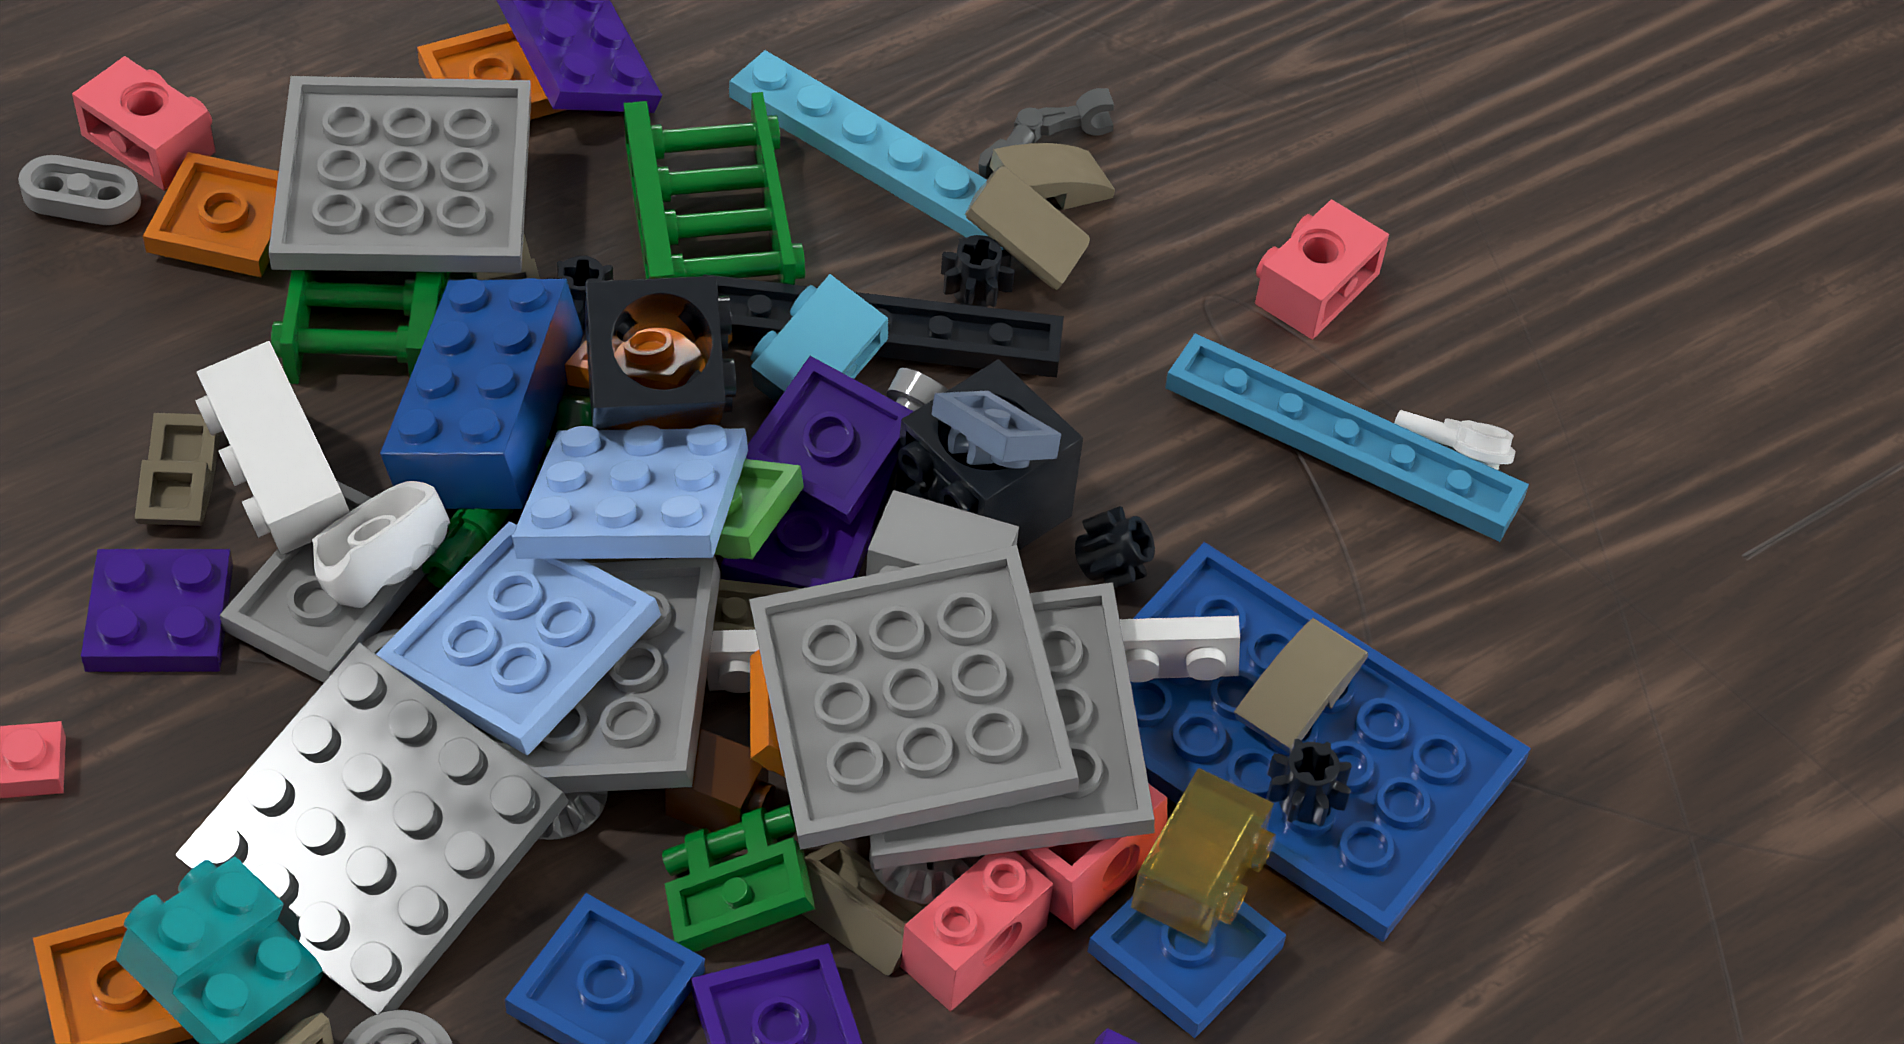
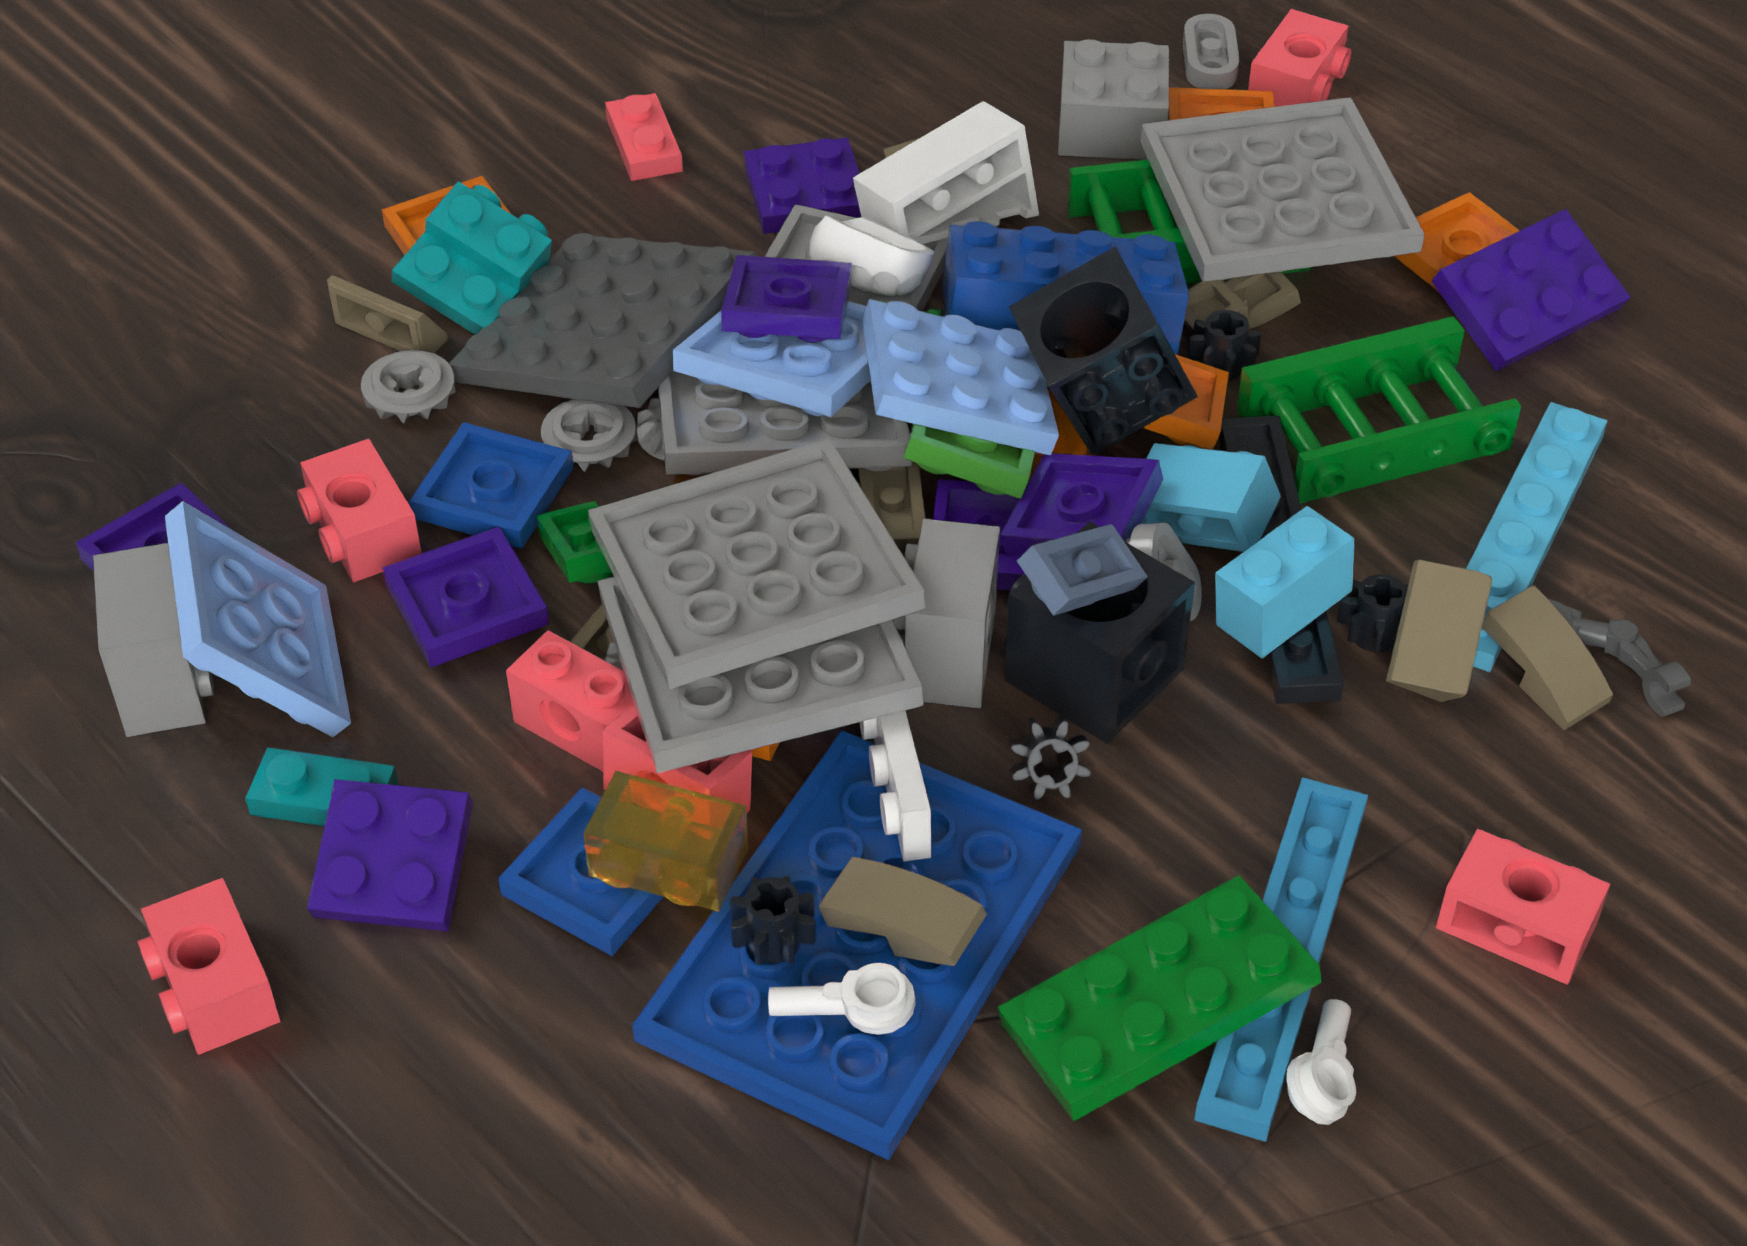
camera: 85 degrees right, 5 degrees down
(144, 288) = (1109, 96): none -> light grey brick
(467, 616) = (787, 298): none -> dark purple plate
(568, 875) = (571, 420): none -> light grey gear
(965, 308) = (1284, 581): none -> medium azure brick
(1394, 528) = (1158, 996): none -> green plate
(1396, 724) = (872, 998): none -> white plate

